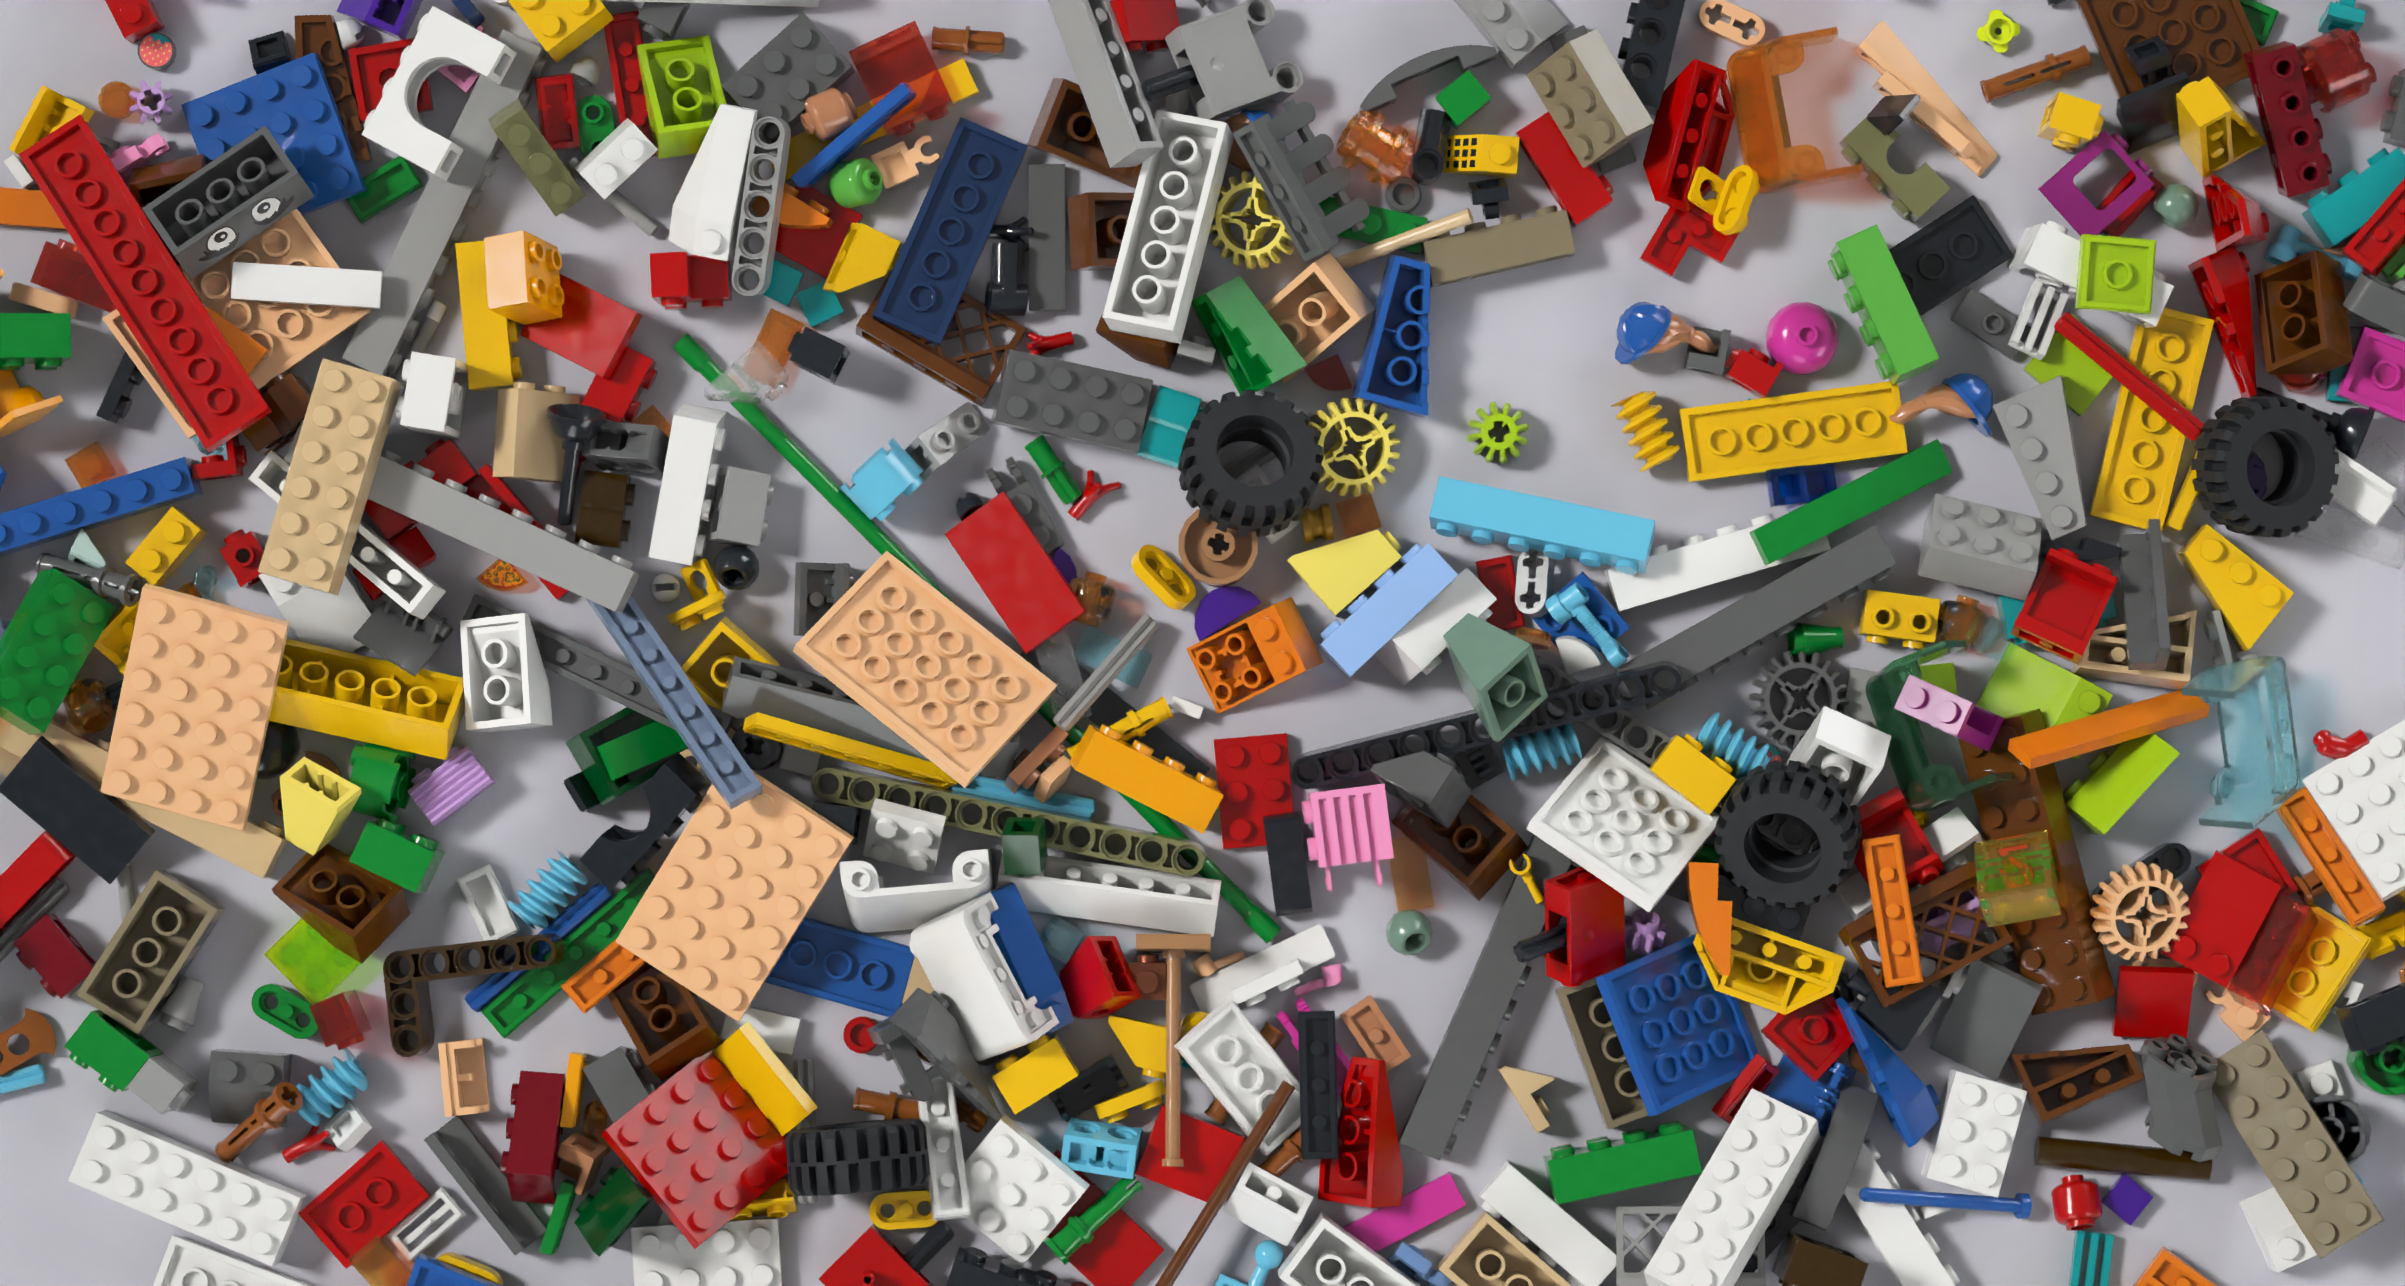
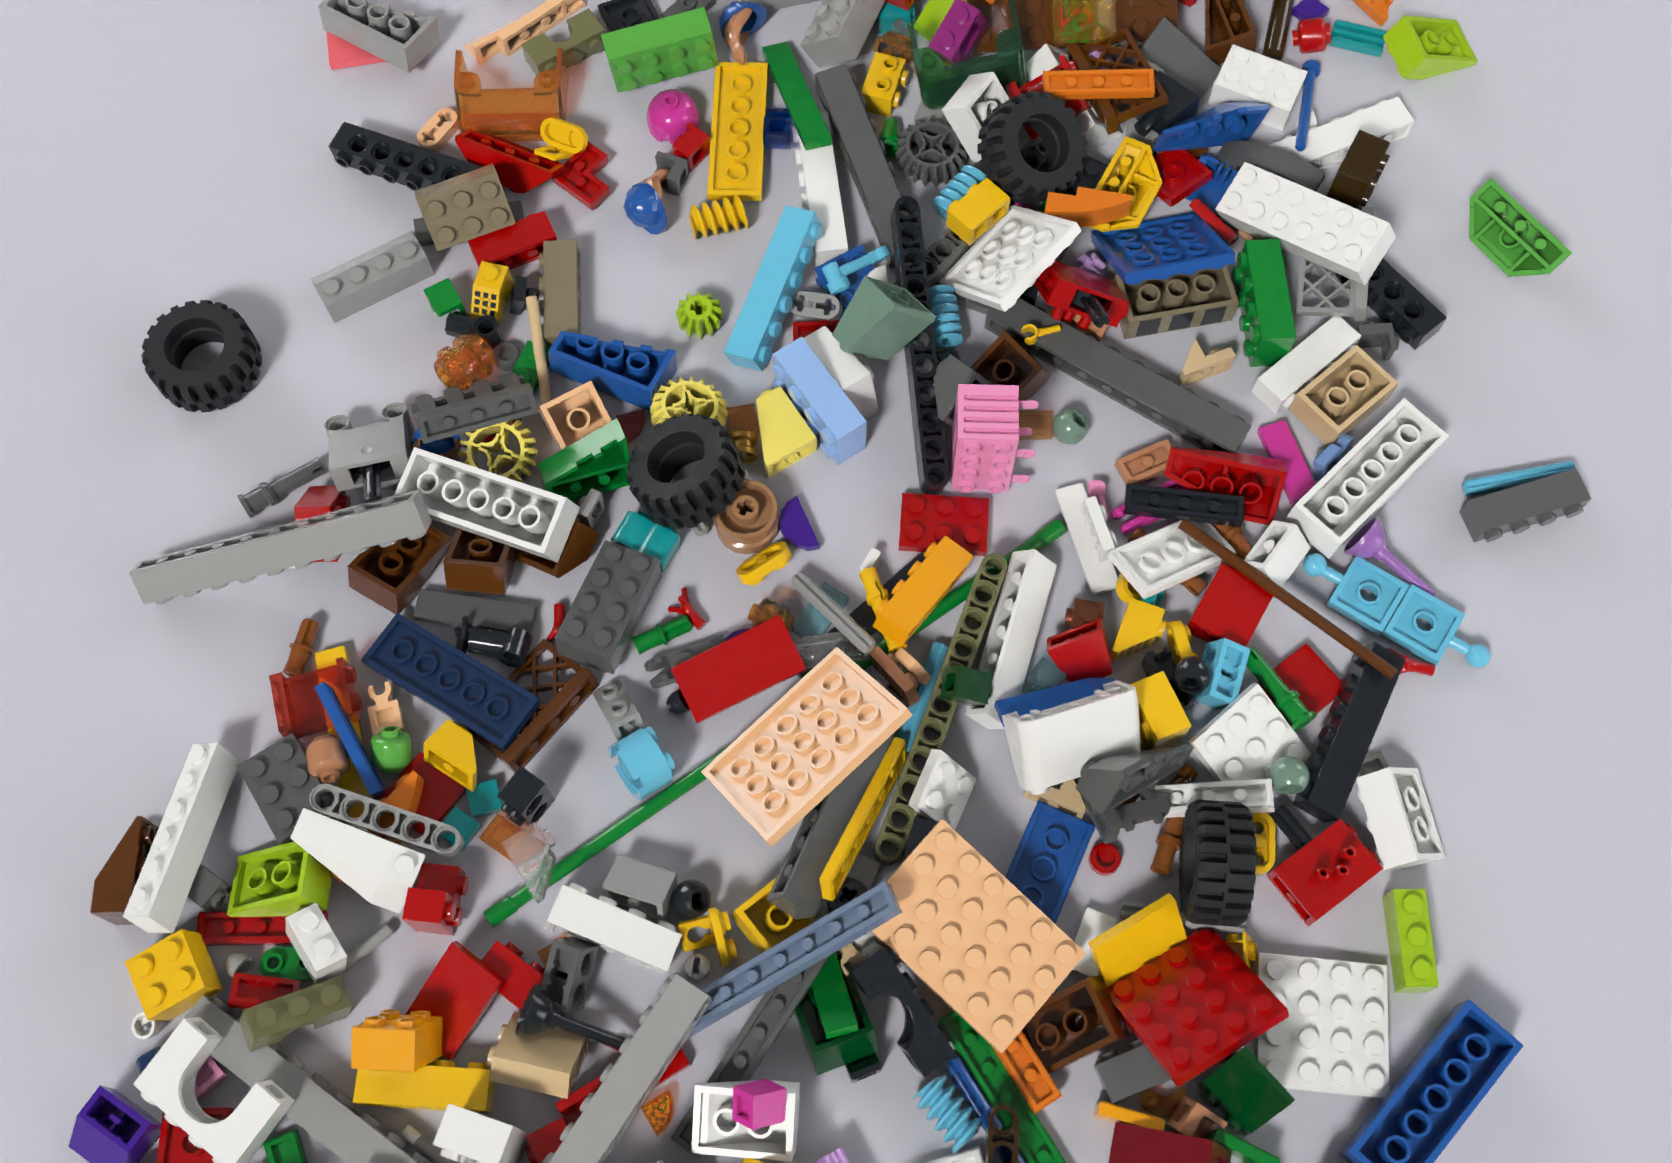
camera: 85 degrees left, 20 degrees down
(514, 686) = (759, 1104): none -> dark pink panel
(604, 509) = (614, 1006): dark brown brick -> none
(817, 590) = (728, 833): dark grey bracket -> none
(907, 907) = (994, 825): white windscreen -> none
(982, 1235) = (1289, 775): none -> sand green piece
(1087, 1112) = (1191, 675): none -> black piece
(1173, 950) = (1065, 593): medium nougat tile -> none
(1205, 966) = (1077, 580): light nougat hand -> none
(1255, 655) = (838, 507): orange slope -> none
(1287, 863) = (1005, 501): black beam -> none
(1466, 55) = (414, 299): dark grey slope -> none
(1892, 111) = (526, 28): black slope -> none

